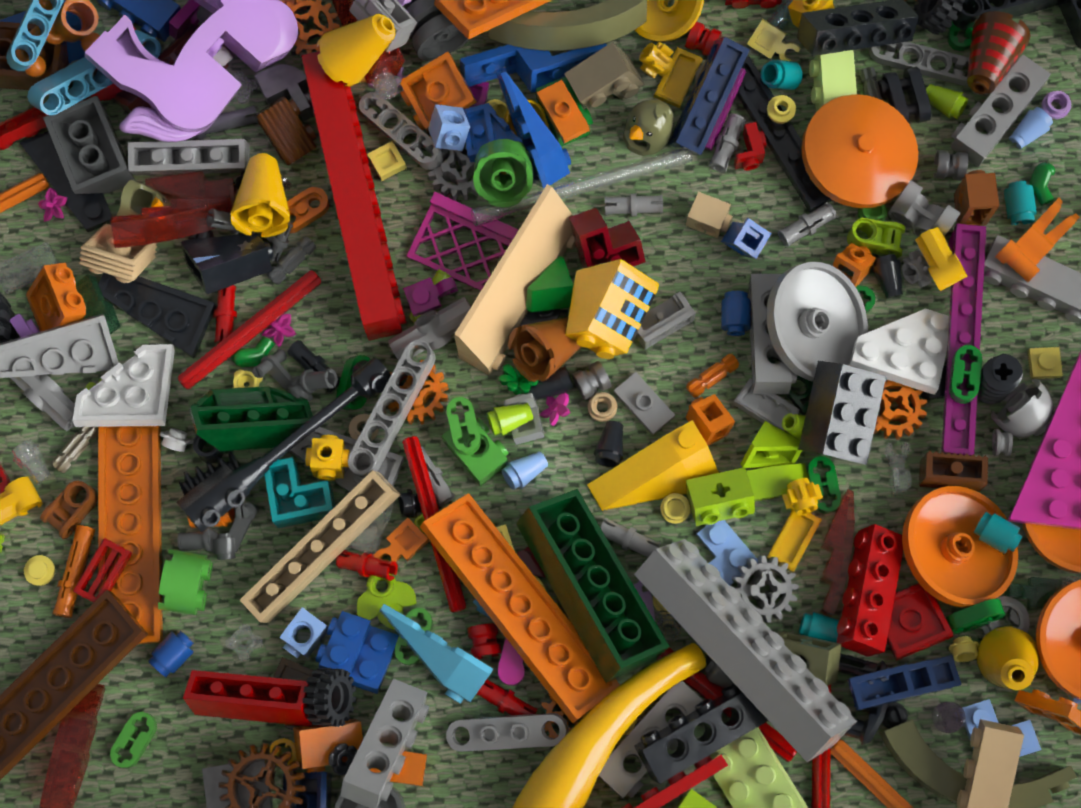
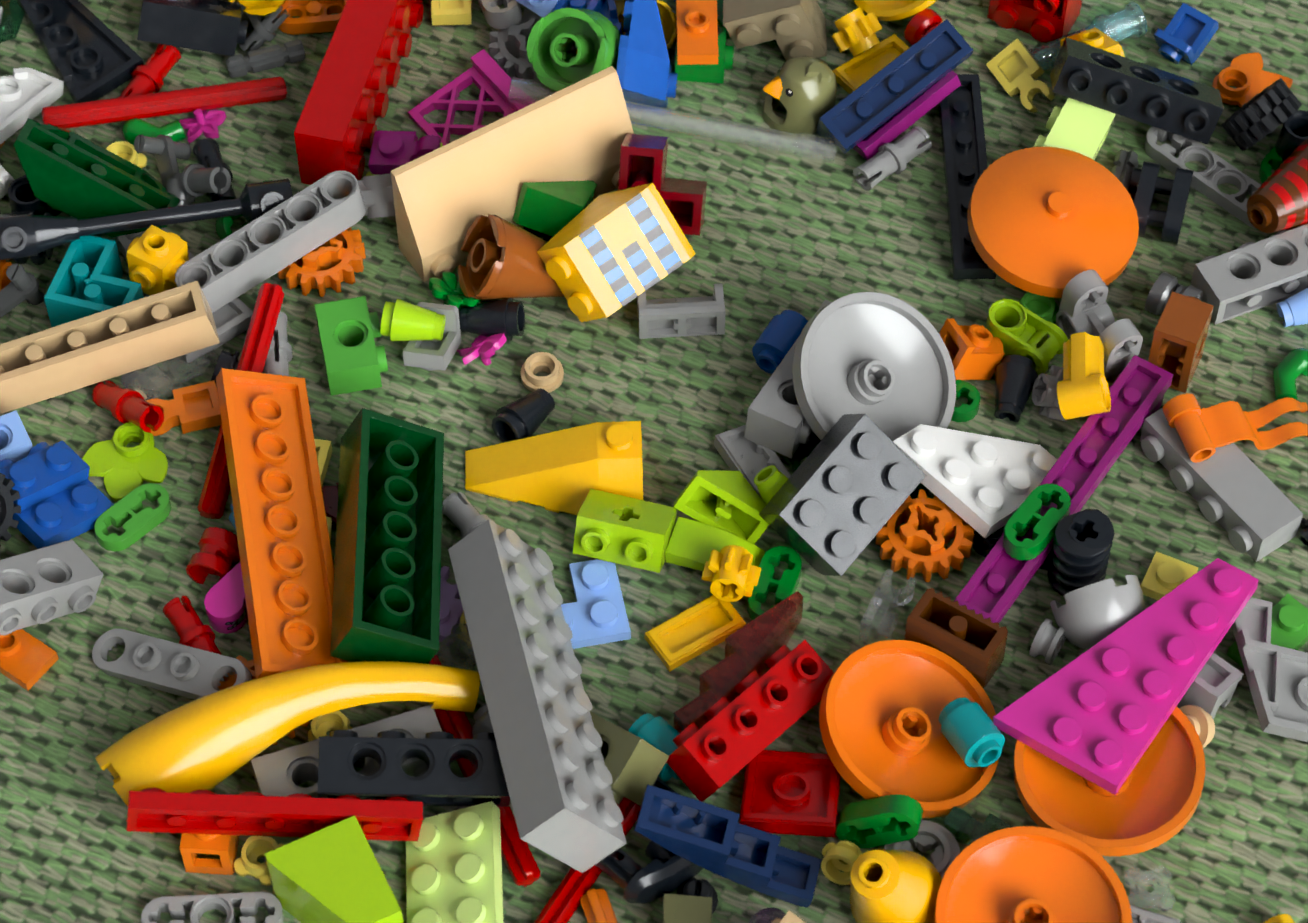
camera: 25 degrees right, 20 degrees down
(450, 666) = (153, 550): medium azure wedge -> none
(456, 426) = (338, 299): bright green beam -> none
(523, 470) = (396, 395): light blue cone -> none
(589, 381) = (546, 334): flat silver wheel -> none
(634, 204) = (728, 174): light grey pin -> none
(644, 403) = (597, 389): light grey plate -> none
(675, 508) = (558, 524): light yellow plate -> none
(709, 215) = (815, 221): tan brick -> none
(710, 418) = (669, 443): orange brick -> none
(712, 375) = (707, 401): orange axle -> none
(746, 238) = (845, 260): blue brick -> none
(755, 144) = (916, 183): red bracket -> none
(764, 577) = (632, 668): light grey gear -> none
(781, 116) = (981, 143): light yellow plate -> none
(782, 74) = (1008, 109): teal brick -> none
(807, 224) = (970, 286): light grey pin -> none
(947, 101) = (1213, 229): lime cone -> none
(1020, 203) = (1245, 379): teal brick -> none

